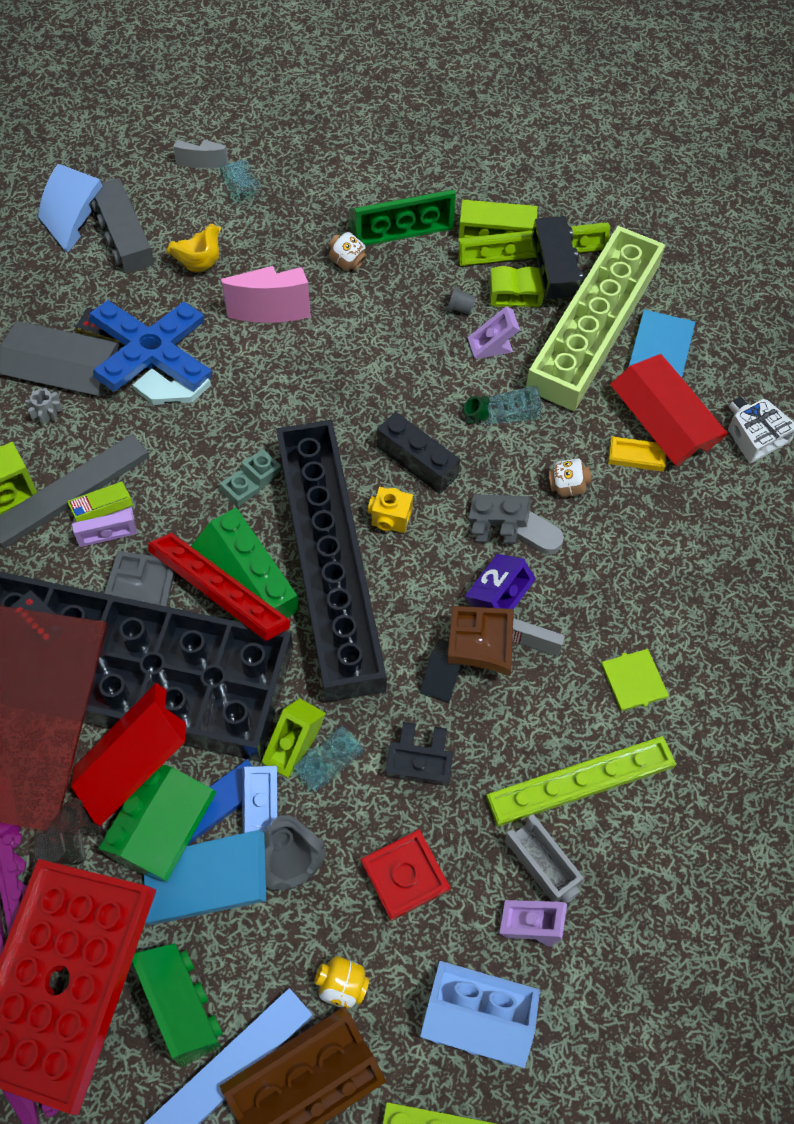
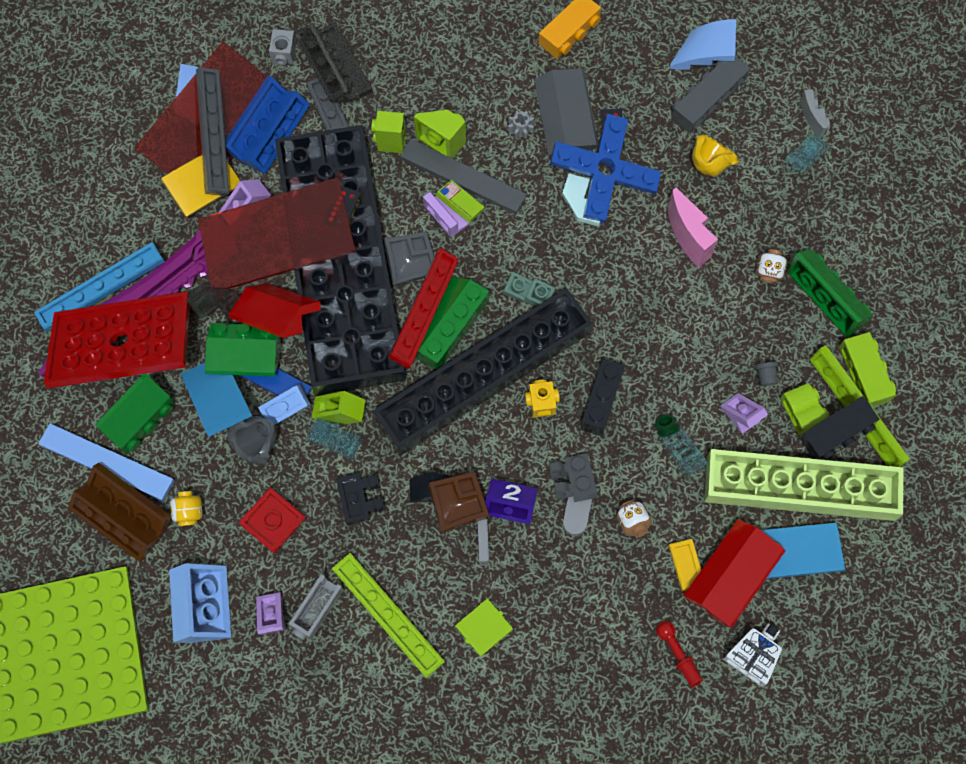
camera: 70 degrees right, 10 degrees up
(703, 501) = (666, 631): none -> red pin

